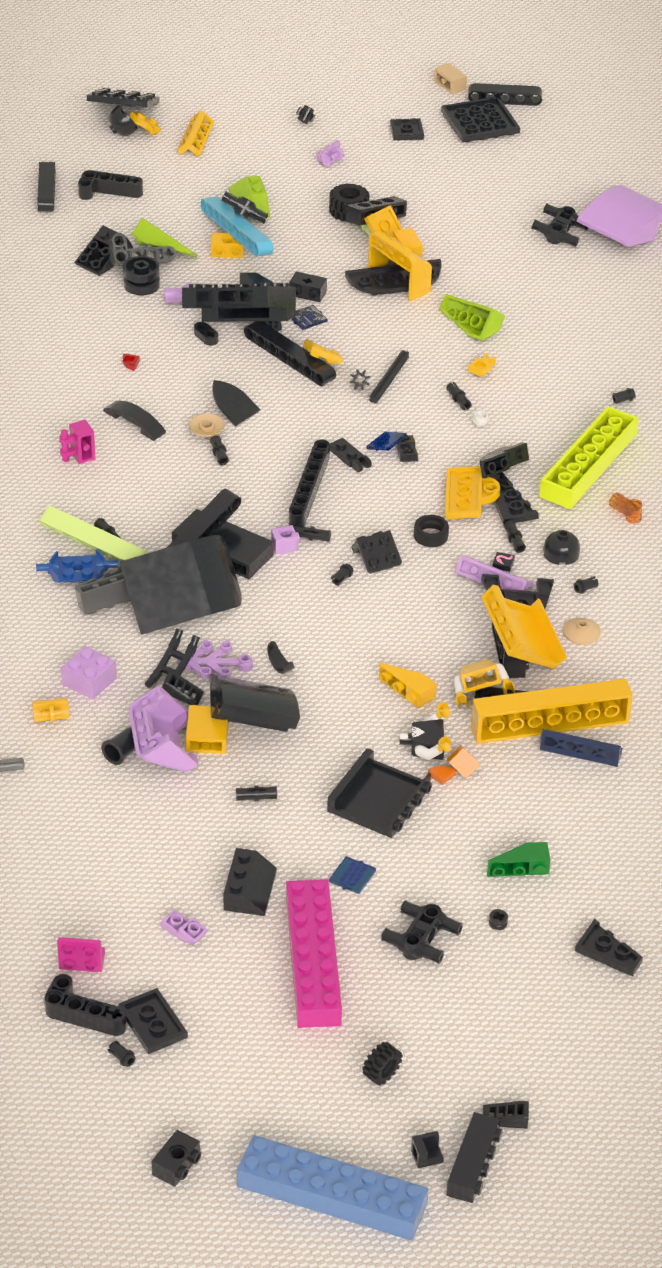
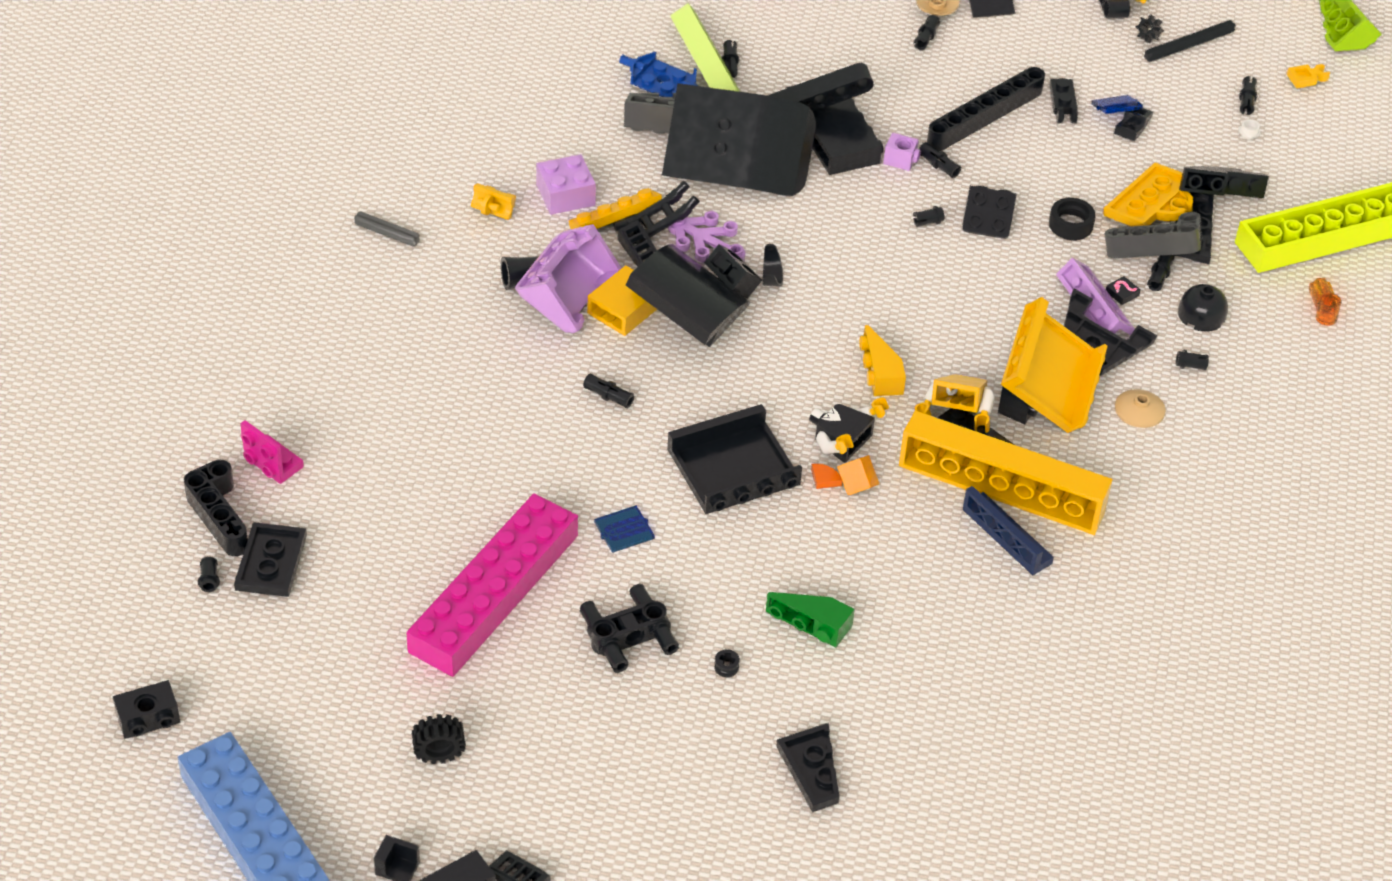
camera: 35 degrees right, 5 degrees up
(139, 674) = (616, 211): none -> yellow plate
(182, 928) = (399, 484): lavender slope -> none
(249, 883) = (505, 475): black slope -> none
(260, 672) = (733, 271): none -> black brick
(500, 517) = (1156, 240): none -> dark grey beam

